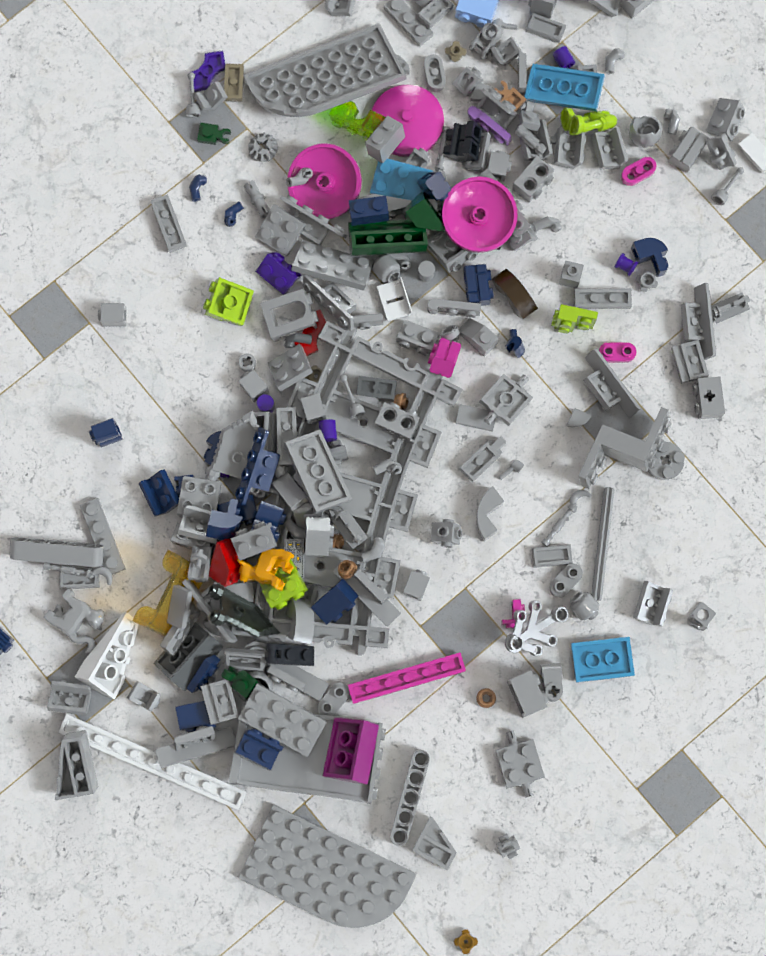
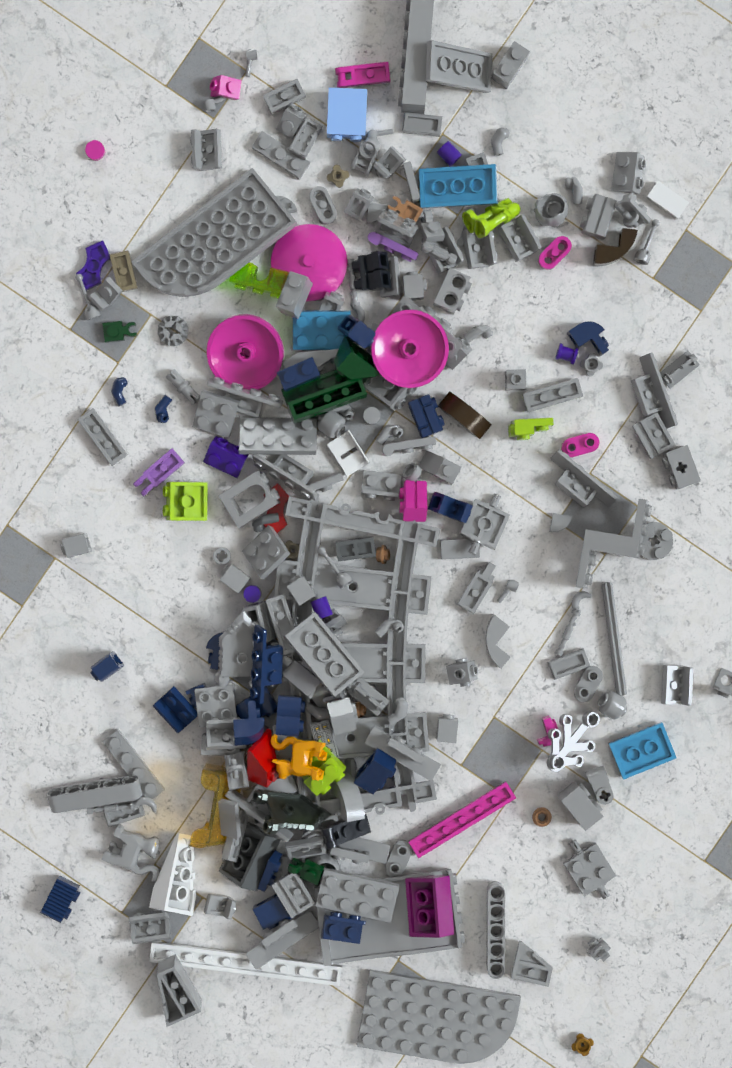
camera: 20 degrees left, 10 degrees up
(212, 269) = (160, 471): none -> medium lavender hinge
(253, 541) = (282, 739): light grey bracket -> none
(301, 177) = (220, 356): light grey arm -> none
(347, 569) = (374, 739): medium nougat plate -> none
(394, 426) = (385, 585): light grey brick -> none
(438, 291) = (389, 431): none -> light grey arm
(477, 374) = (450, 507): none -> dark blue brick
(515, 344) = (478, 463): dark blue piece -> none
(690, 186) = (607, 255): none -> dark brown brick

